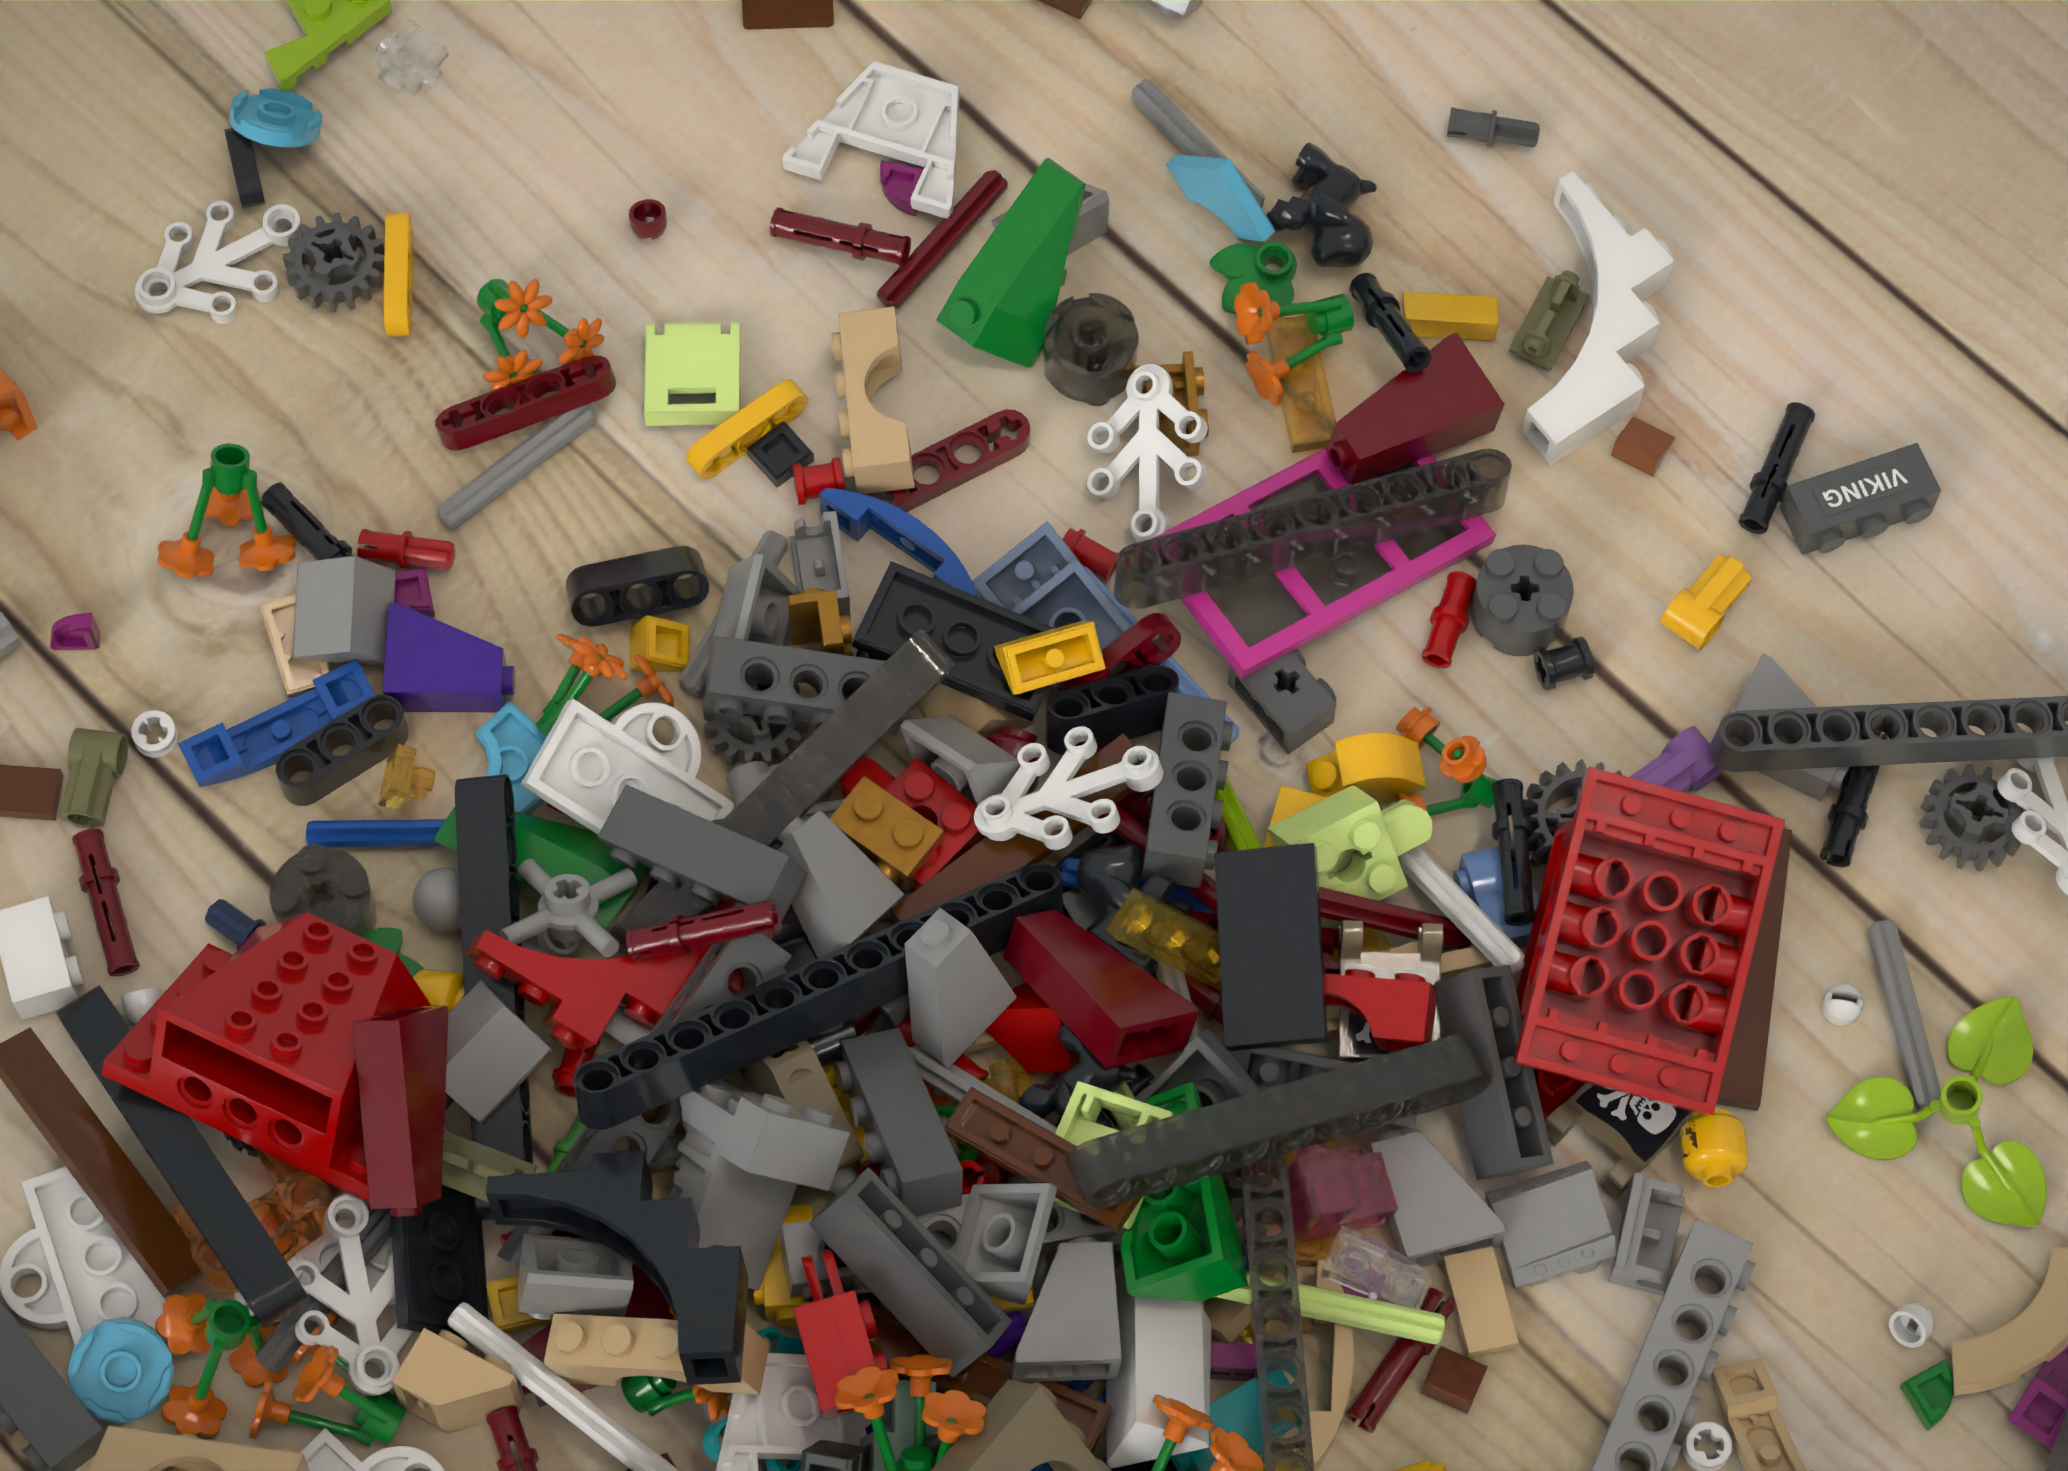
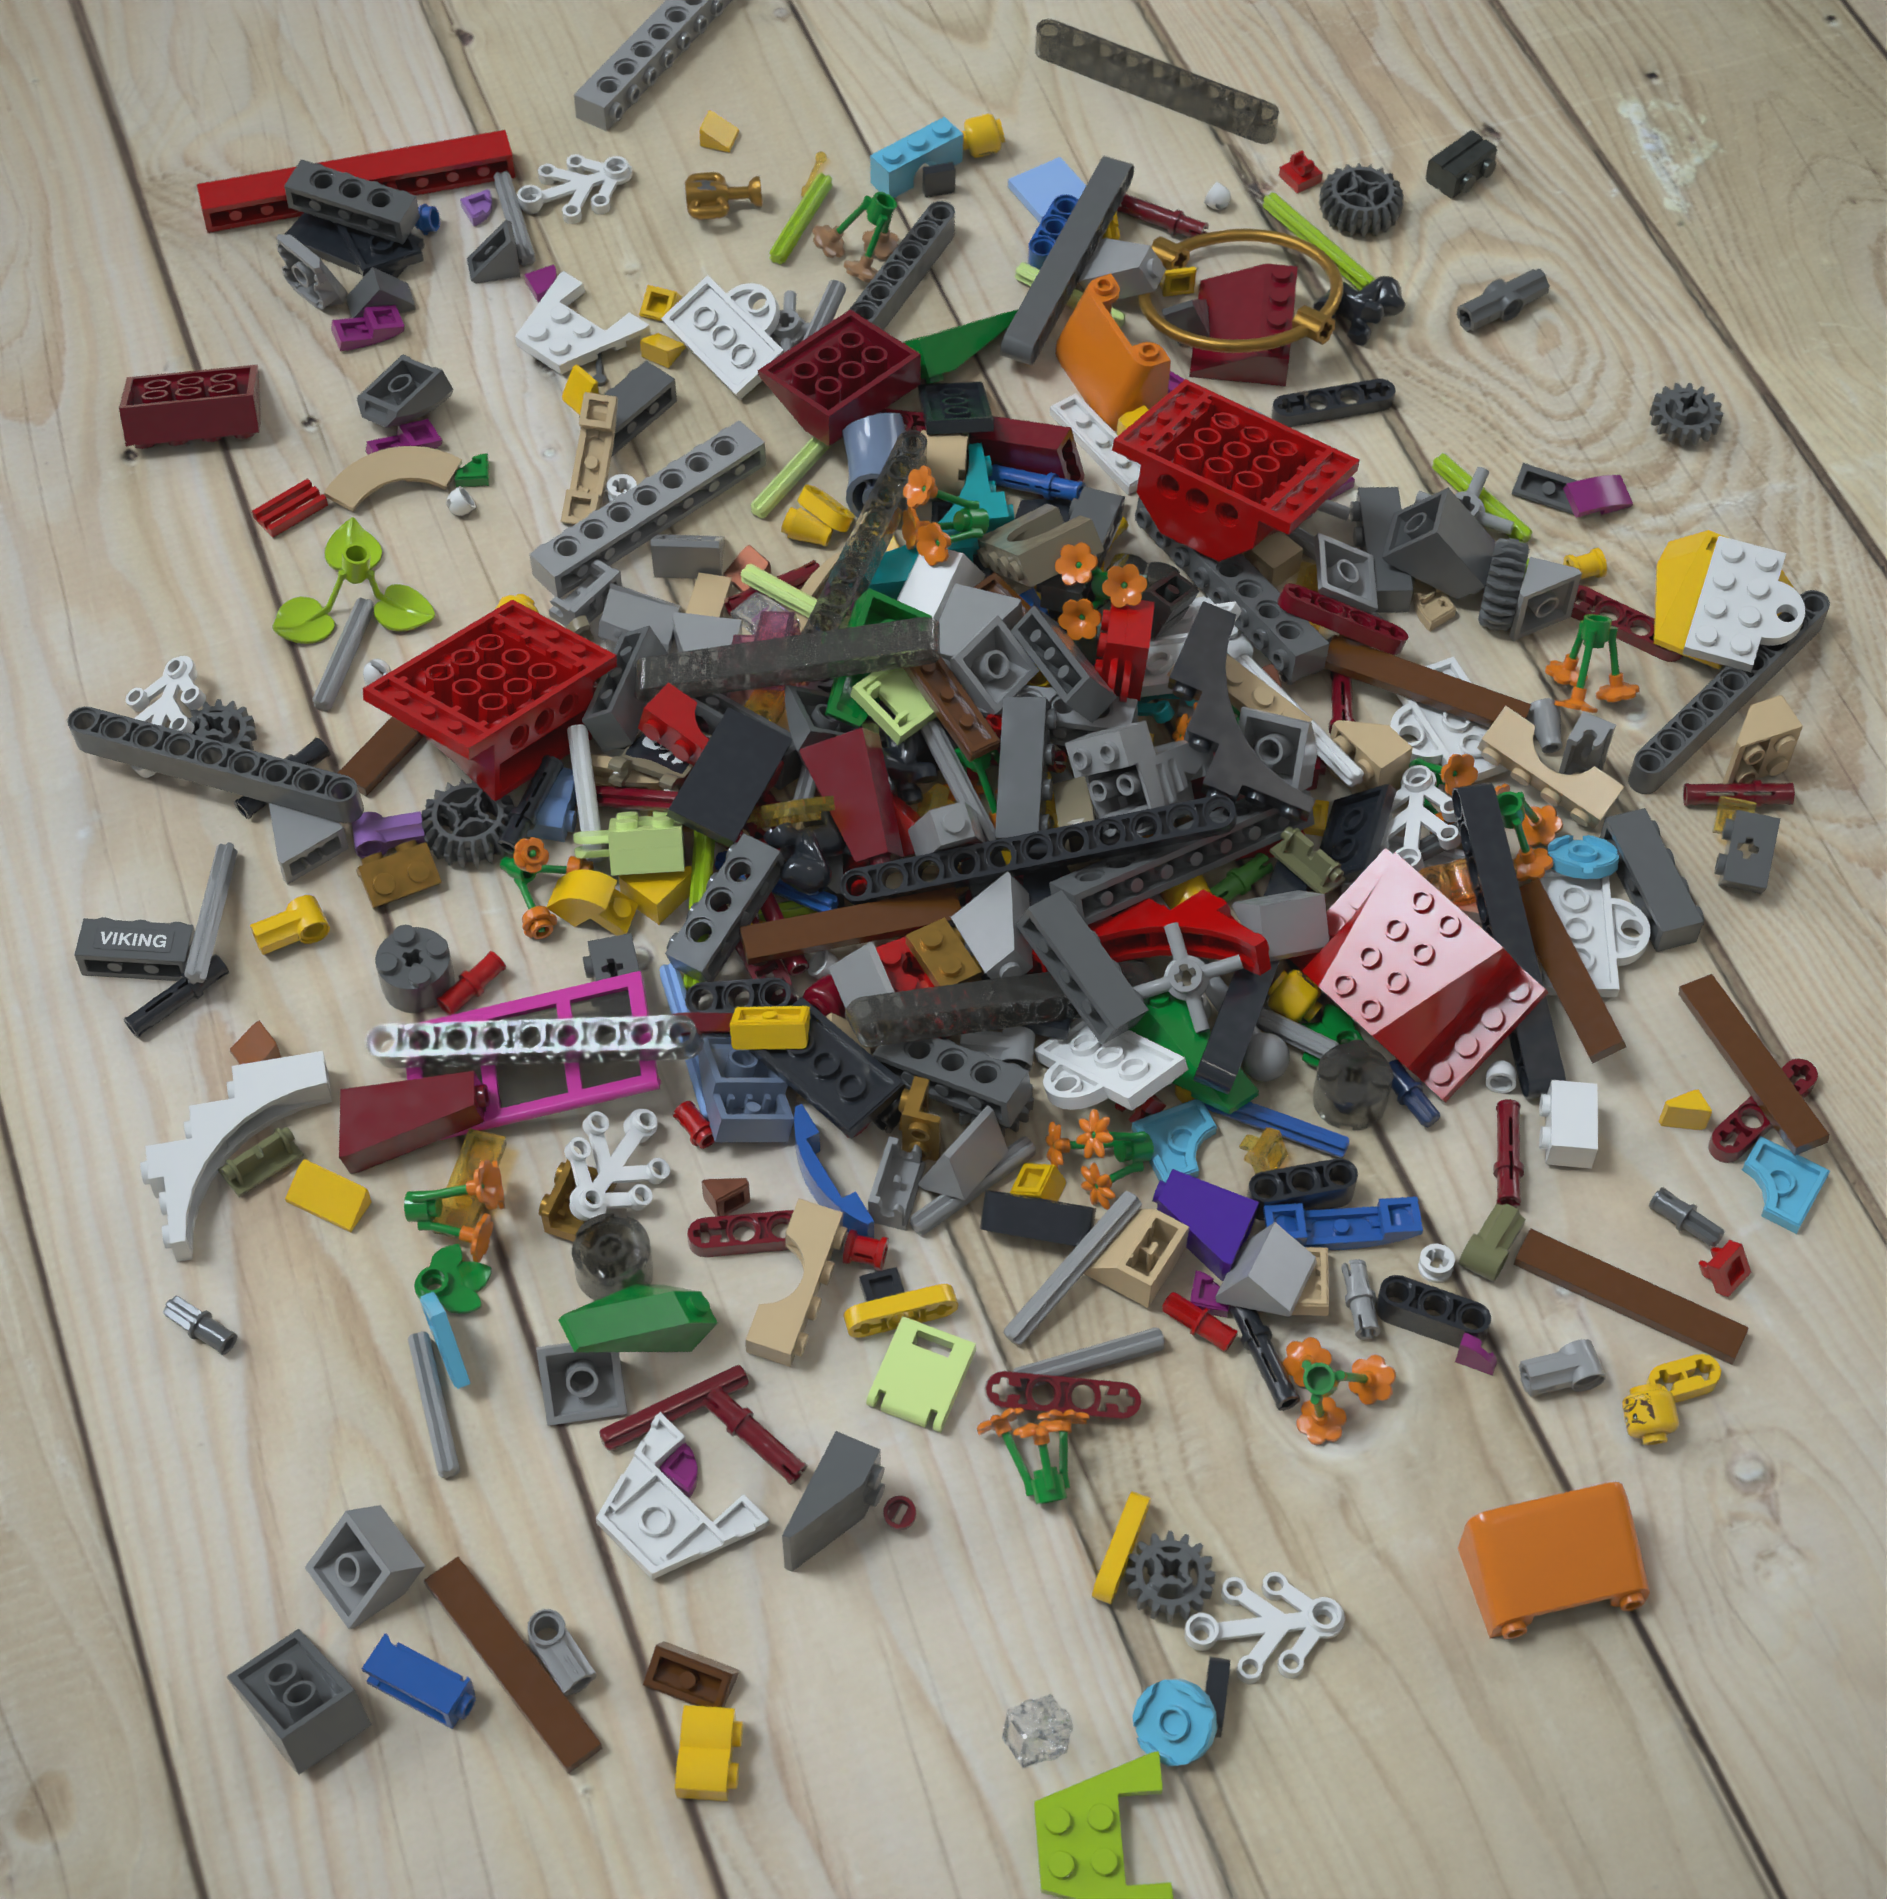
camera: 155 degrees left, 10 degrees down
(120, 646) = (1417, 1298): none -> black beam
(229, 648) = (1360, 1299): none -> light grey pin
(403, 1105) = (1347, 876): dark red slope -> none
(414, 947) = (1294, 1033): none -> light grey axle
(507, 588) = (1141, 1256): none -> tan slope
(571, 543) = (1072, 1268): none -> light grey axle
(683, 934) = (1119, 905): dark red pin -> none
(714, 188) = (834, 1499): none -> dark grey slope
(1009, 478) = (725, 1194): none -> copper slope
(1009, 813) = (815, 922): white plant -> none
(1338, 235) = (376, 1301): black animal -> none
(1382, 312) = (377, 1231): black pin -> none
(1553, 1371) = (687, 555): none -> light grey slope
(1564, 663) = (422, 920): black bush -> none
(1629, 724) = (398, 874): none -> pearl gold bracket
(1807, 573) = (210, 913): none -> light grey axle

